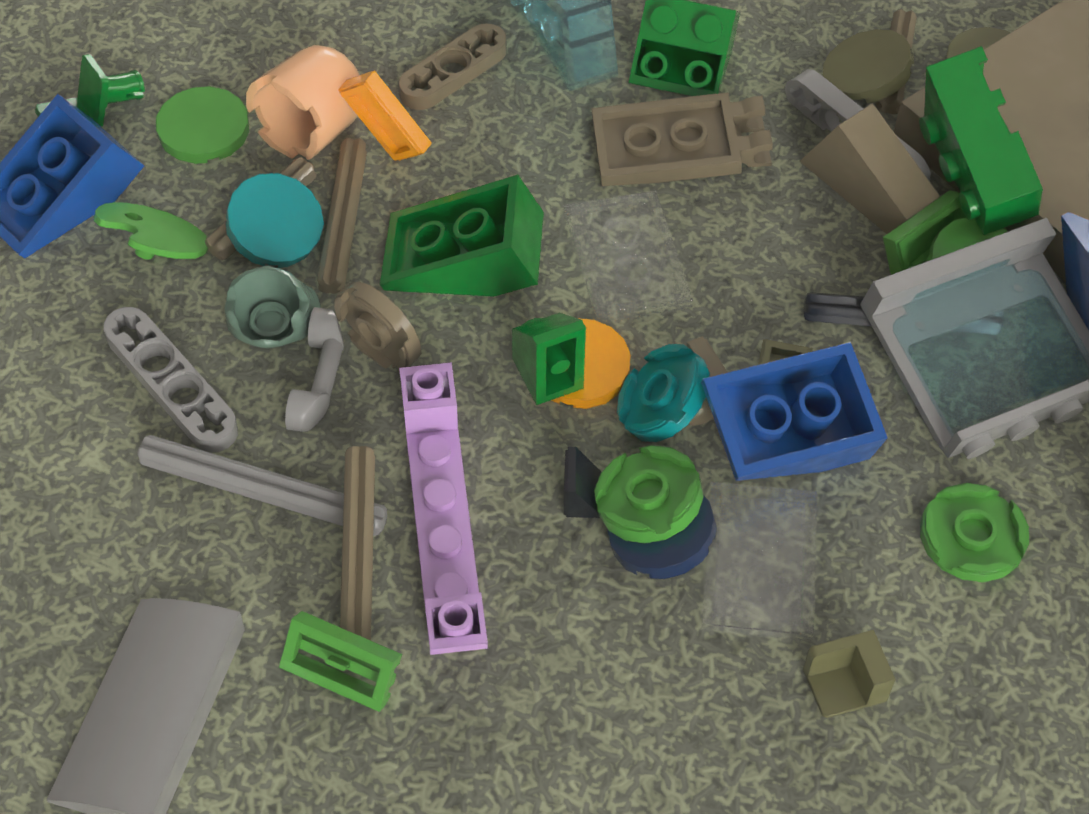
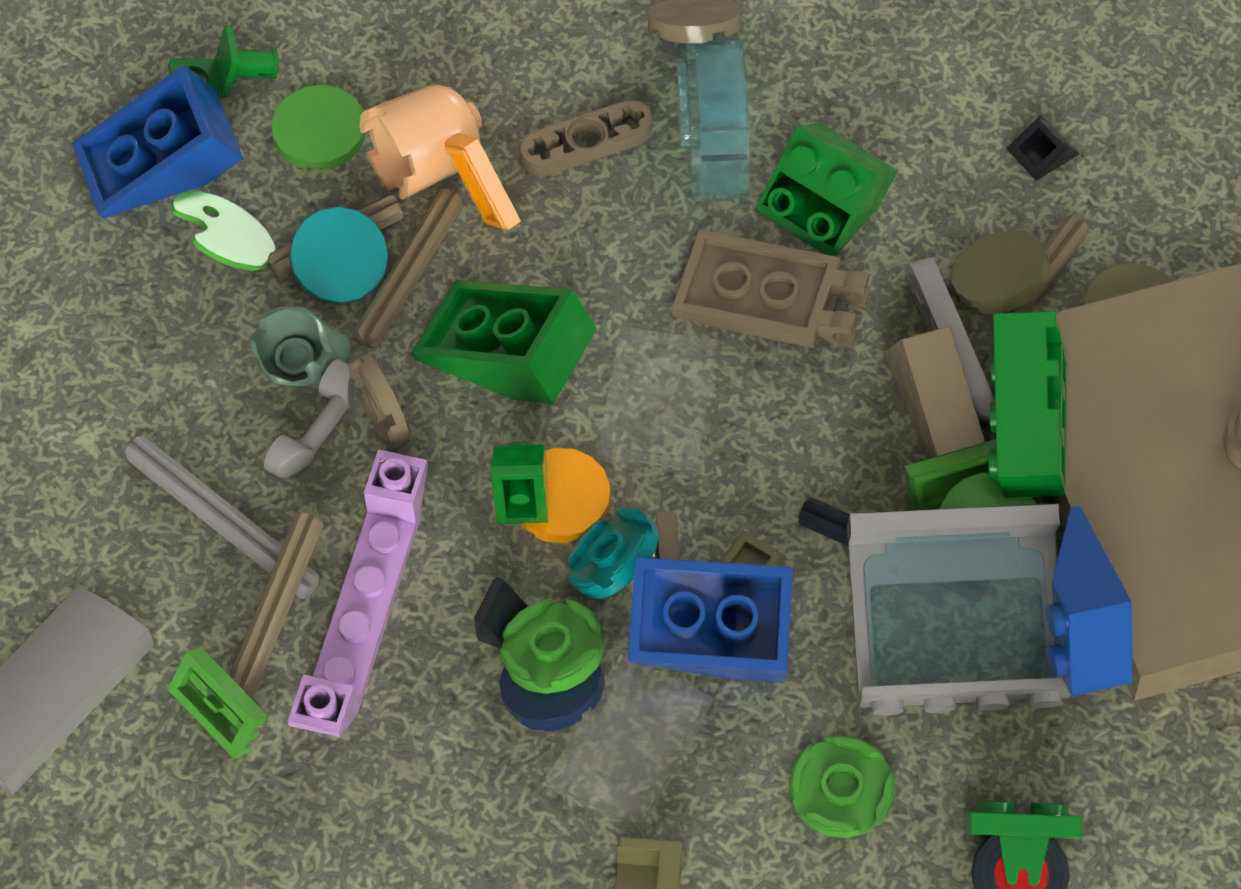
camera: 25 degrees right, 5 degrees up
(174, 376) = (183, 386): light grey beam -> none

